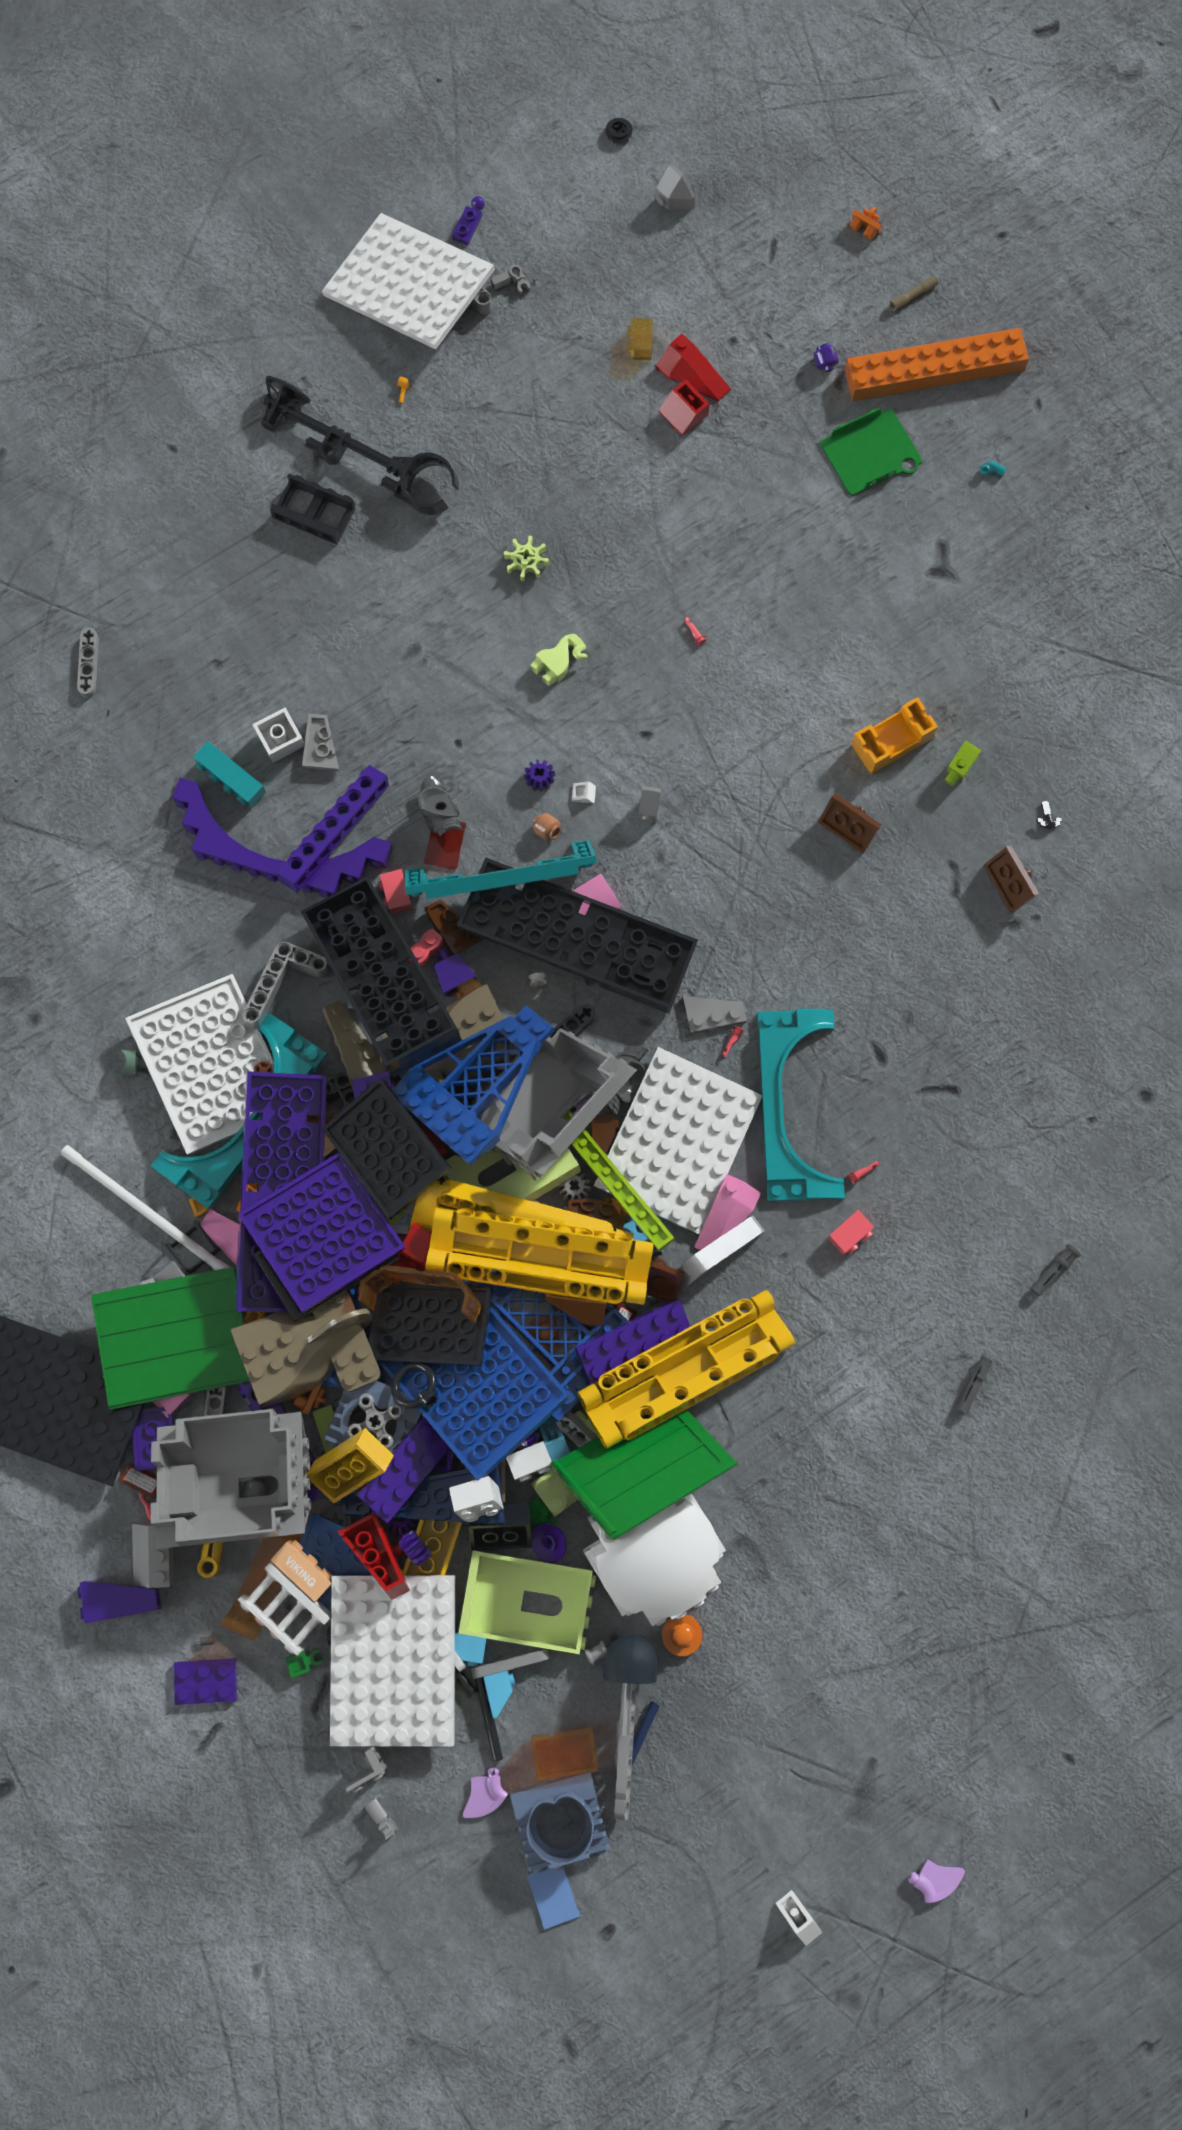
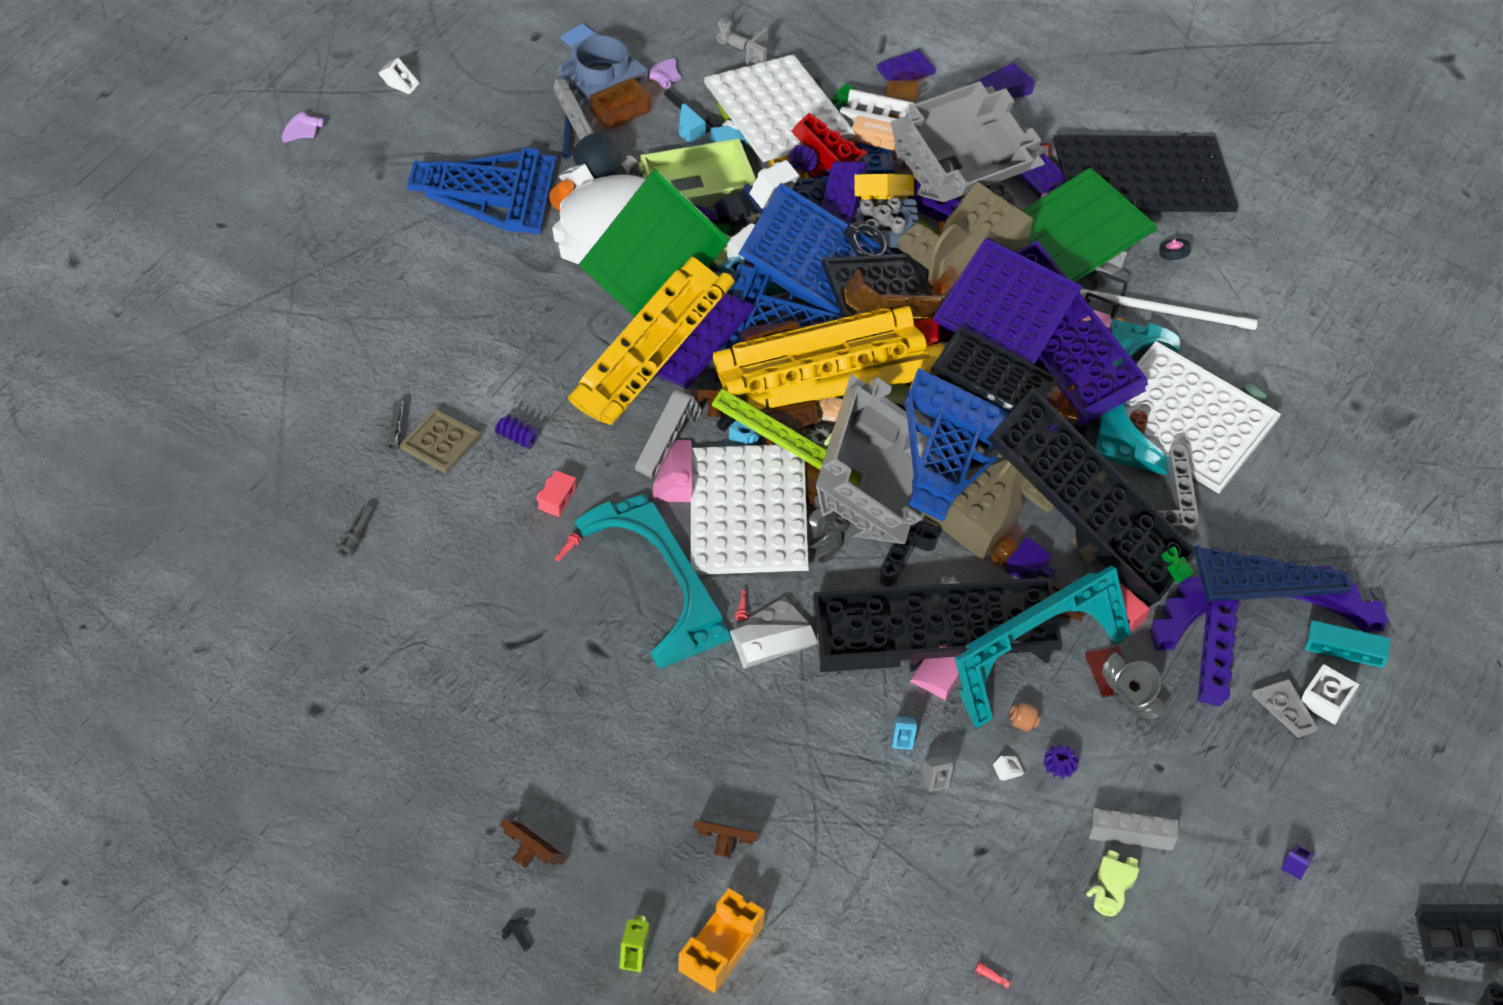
camera: 150 degrees right, 25 degrees down
(82, 1276) = (1175, 249): none -> black wheel
(283, 849) = (1244, 577): none -> dark blue wing
(331, 897) = (1178, 566): none -> green plate
(400, 616) = (1297, 861): none -> dark purple slope
(429, 945) = (1067, 567): coral brick -> none
(510, 1663) = (703, 133): light grey beam -> none
(517, 692) = (1133, 829): none -> light grey brick
(526, 565) = (1214, 974): yellowish green gear -> none
(656, 852) = (904, 732): none -> medium azure slope
(665, 1648) = (577, 174): none -> white slope
(719, 1659) = (524, 202): none -> blue wing
(732, 987) = (766, 642): none -> white wedge
(860, 1323) = (517, 432): none -> dark purple piece
(938, 1346) = (440, 441): none -> dark tan plate

